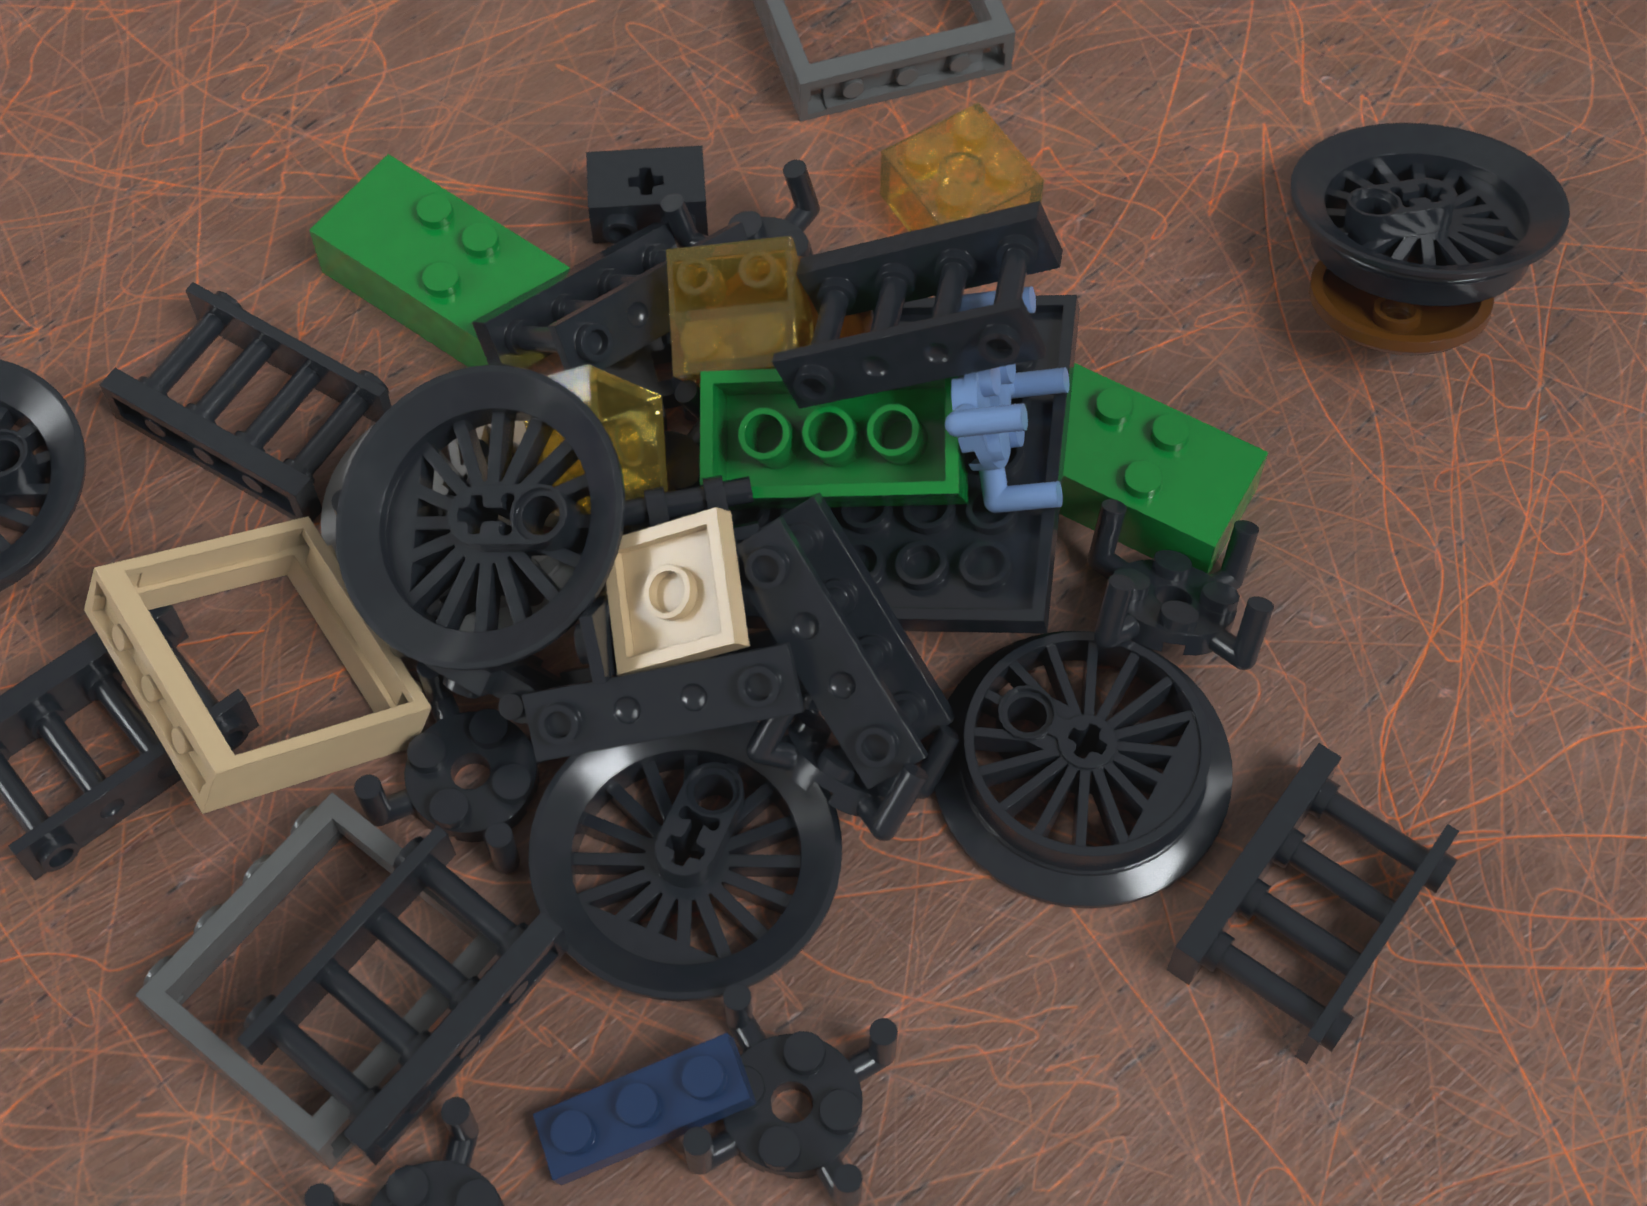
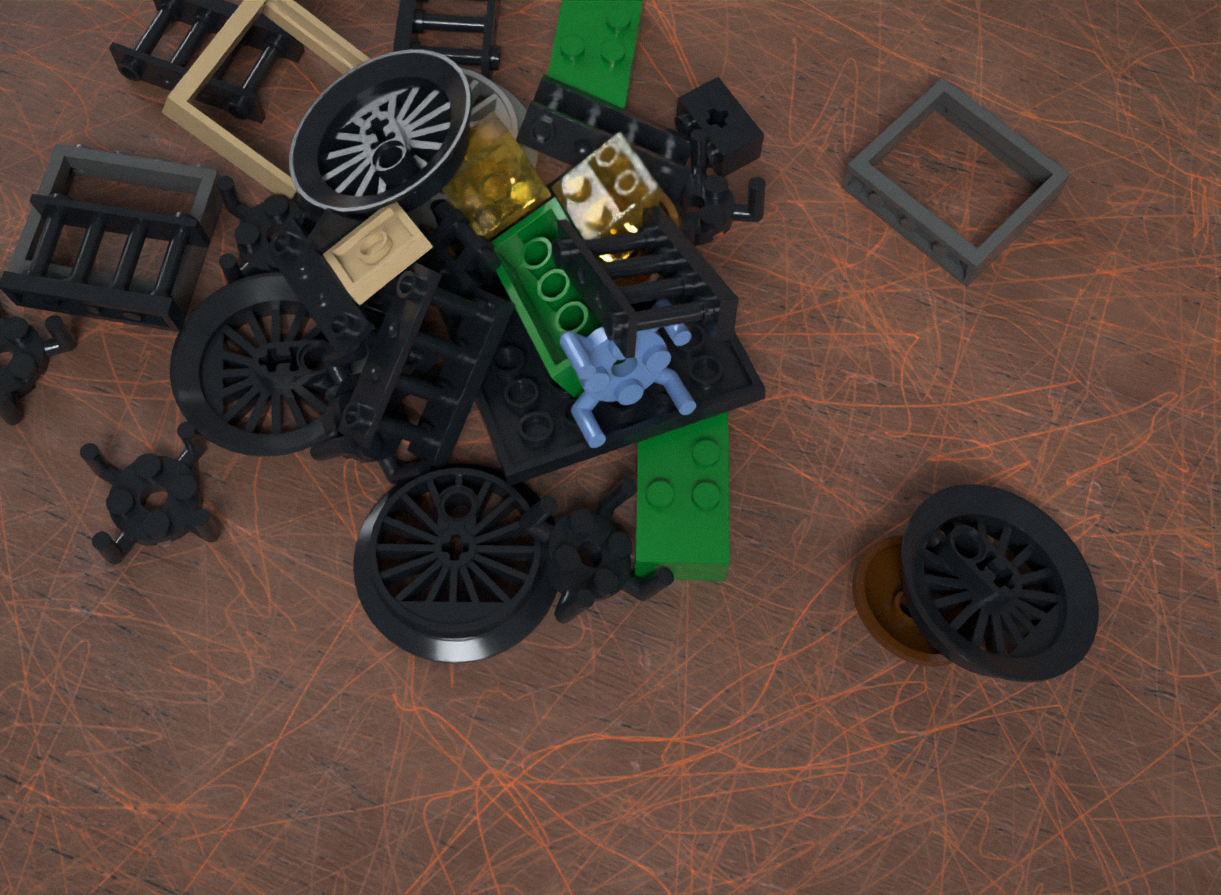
camera: 60 degrees right, 5 degrees up
(644, 1109) = (112, 422): dark blue plate -> none
(956, 172) = (836, 294): clear yellow brick -> none
(1246, 894) = (408, 692): black fence -> none

